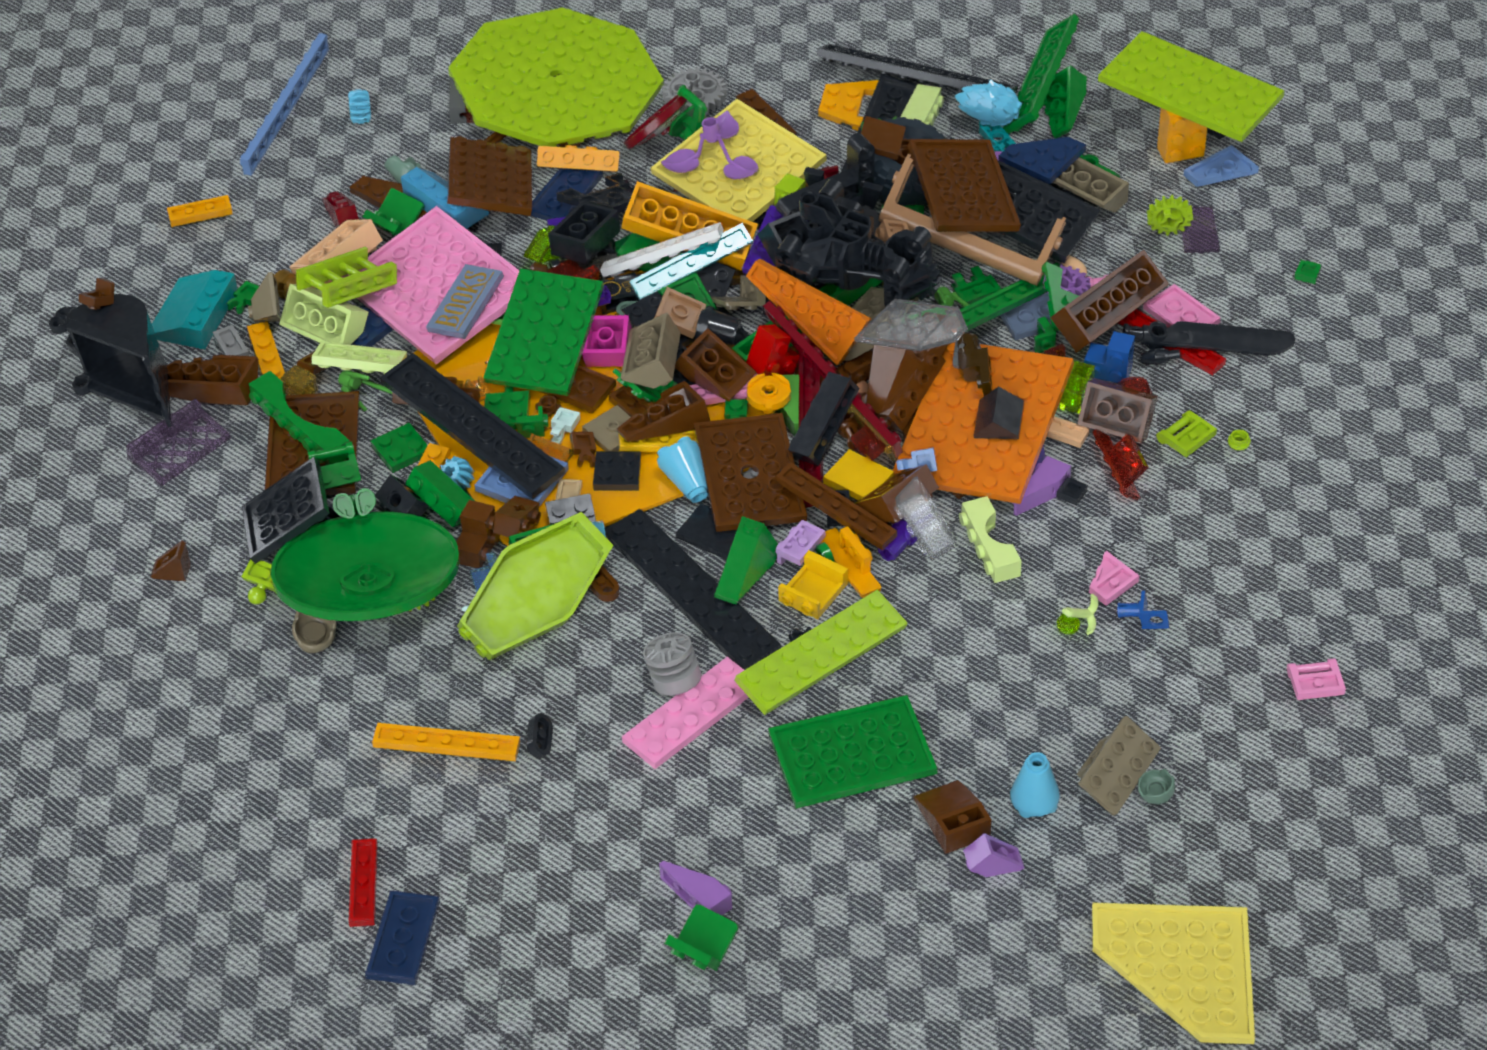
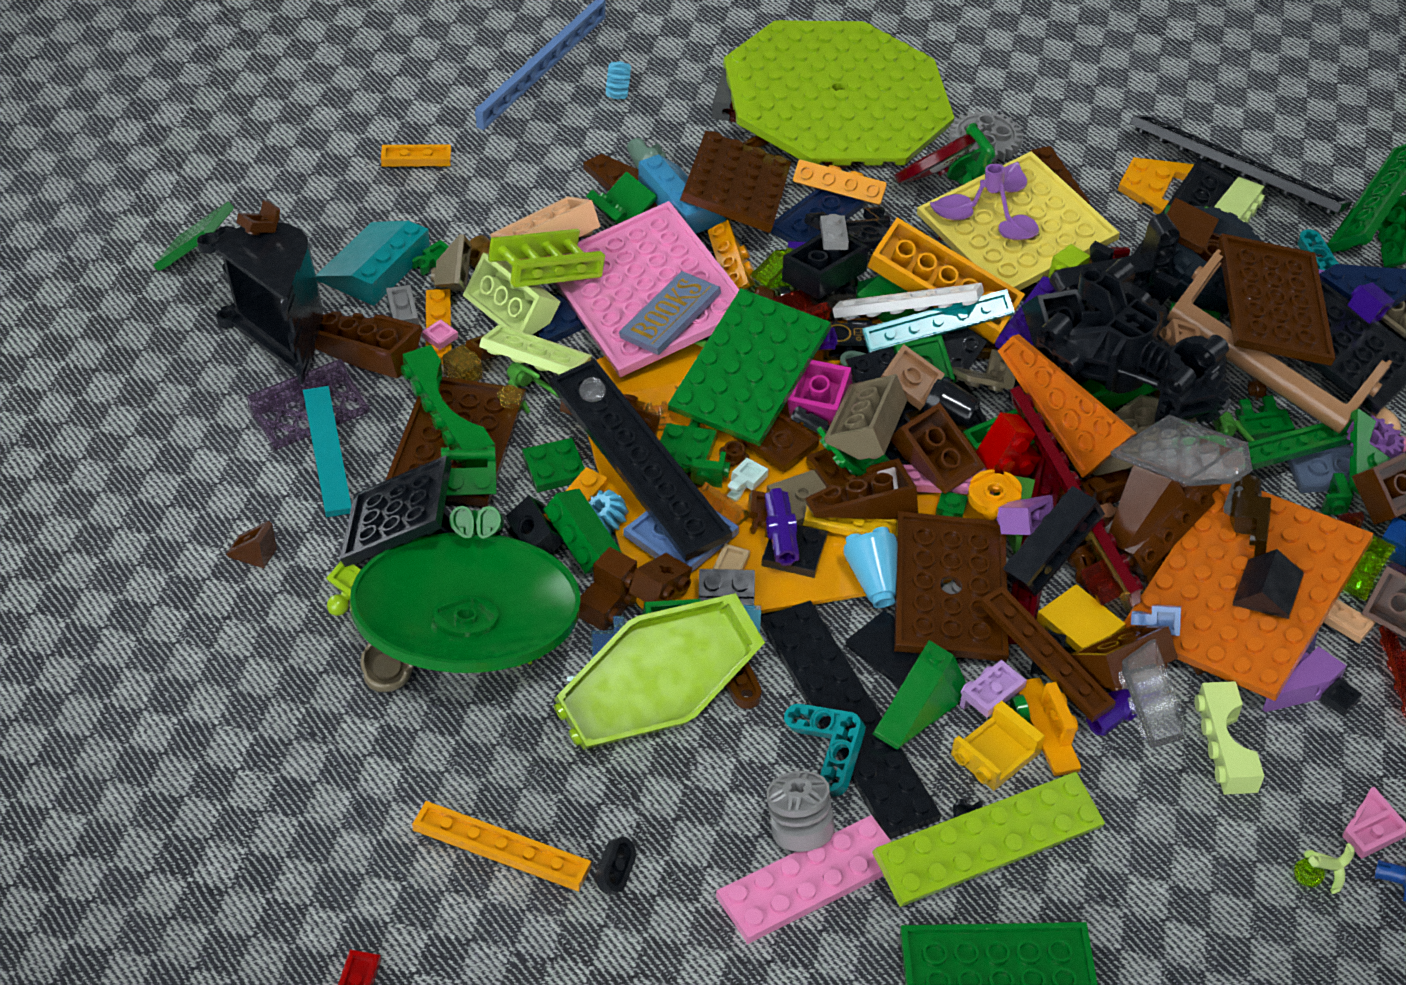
camera: 10 degrees right, 0 degrees up
(32, 322) = (188, 239): none -> green tile
(207, 476) = (327, 451): none -> teal tile
(272, 361) = (440, 334): none -> bright pink tile
(340, 208) = (566, 182): dark red slope -> none
(348, 399) = (509, 396): none -> clear yellow plate
(419, 378) = (592, 389): none -> clear plate
(501, 241) = (731, 255): none -> light orange bracket
(586, 204) = (834, 232): none -> light grey plate
(603, 455) = (781, 527): none -> dark purple piece
(604, 366) = (810, 420): none -> black axle
(684, 601) = (838, 735): none -> teal beam
(795, 404) = (1023, 515): none -> medium lavender slope
(965, 263) = (1256, 389): none -> reddish brown plate
(989, 103) = (1318, 213): medium azure head -> none
(1042, 172) = (1370, 302): none -> dark purple brick

